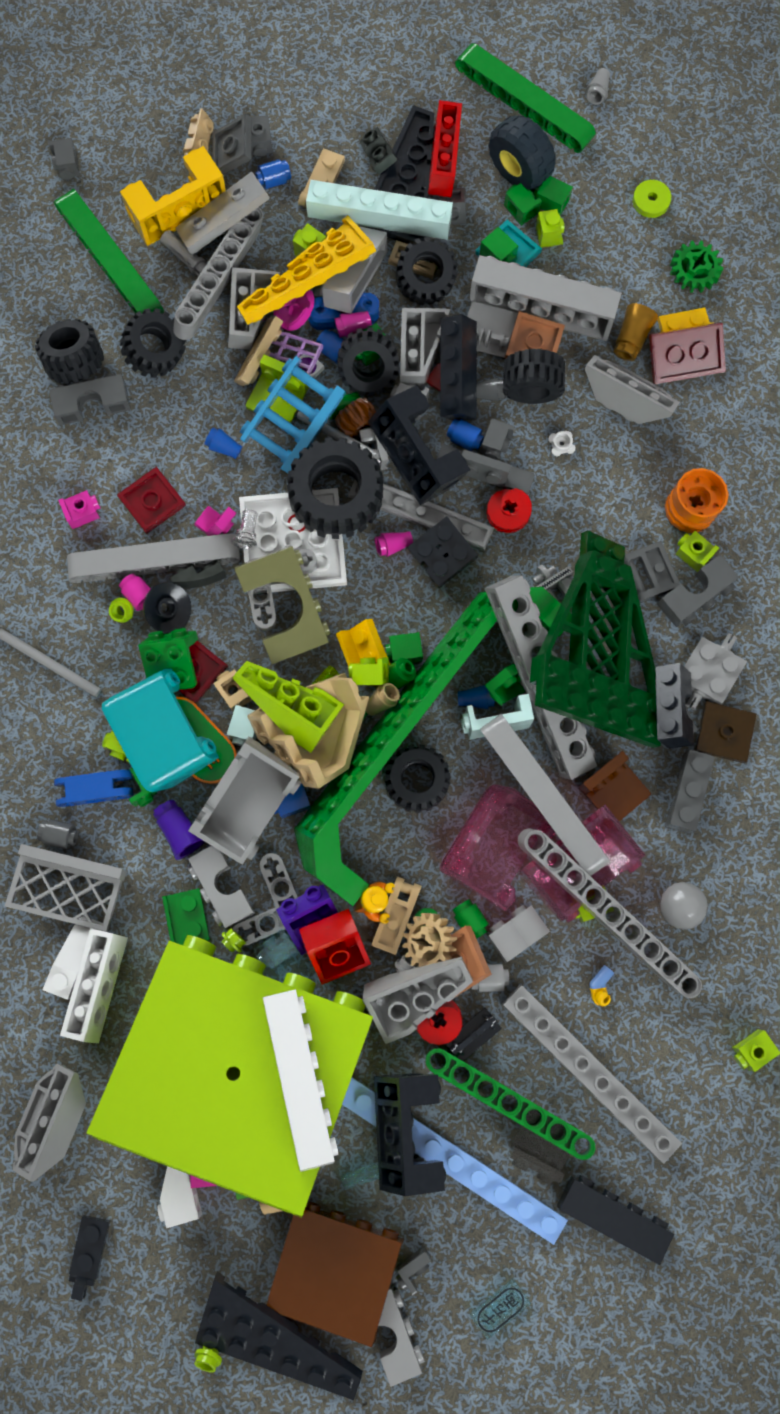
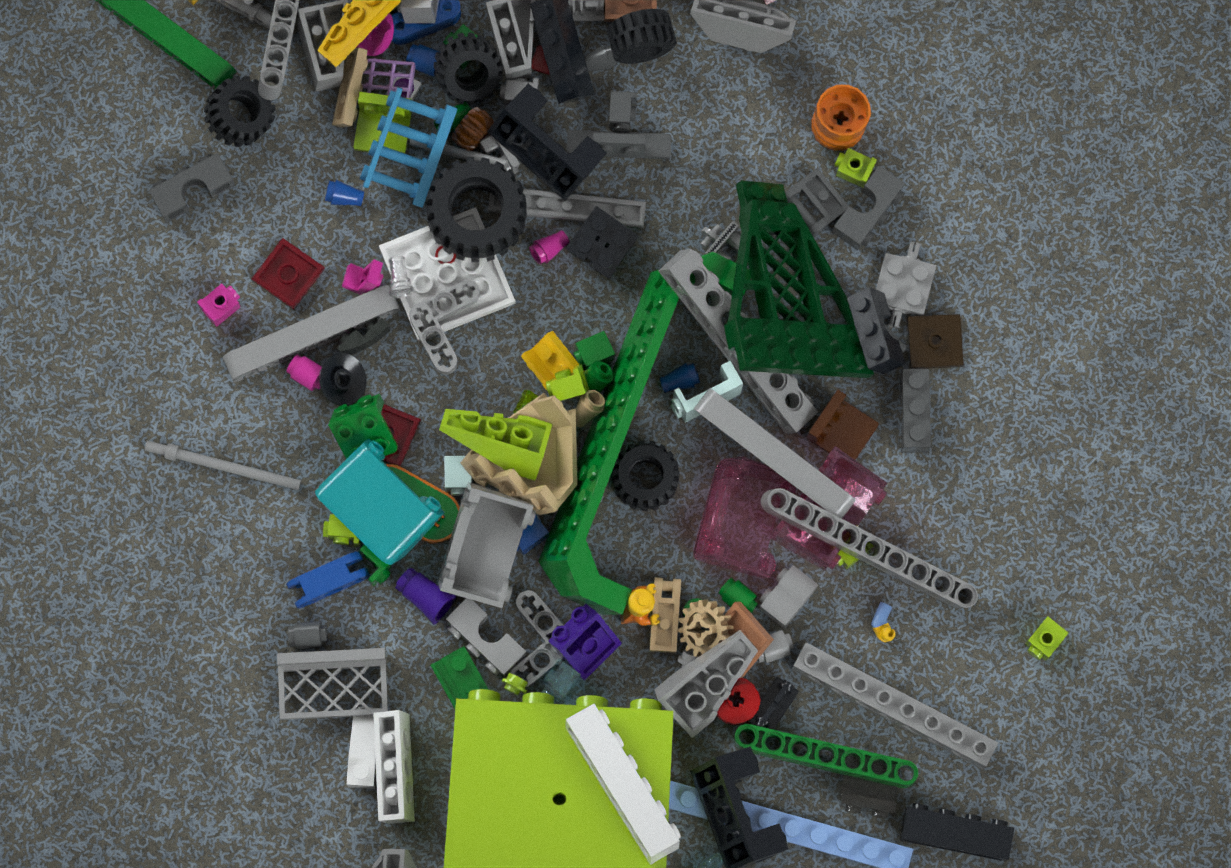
camera: 20 degrees left, 0 degrees up
(69, 351) = (148, 130): black tyre -> none
(116, 613) = (291, 400): lime plate -> none
(223, 685) = (431, 432): tan brick -> none
(308, 629) = (491, 360): olive arch -> none
(334, 946) = (616, 659): red brick -> none
(351, 322) = (439, 32): dark pink cone -> none
(465, 435) = (588, 114): blue brick -> none
(505, 685) = (705, 359): green bracket -> none
(513, 500) = (654, 192): red piece -> none
(566, 438) = (689, 87): white plate -> none
(683, 905) = (939, 522): light grey piece -> none

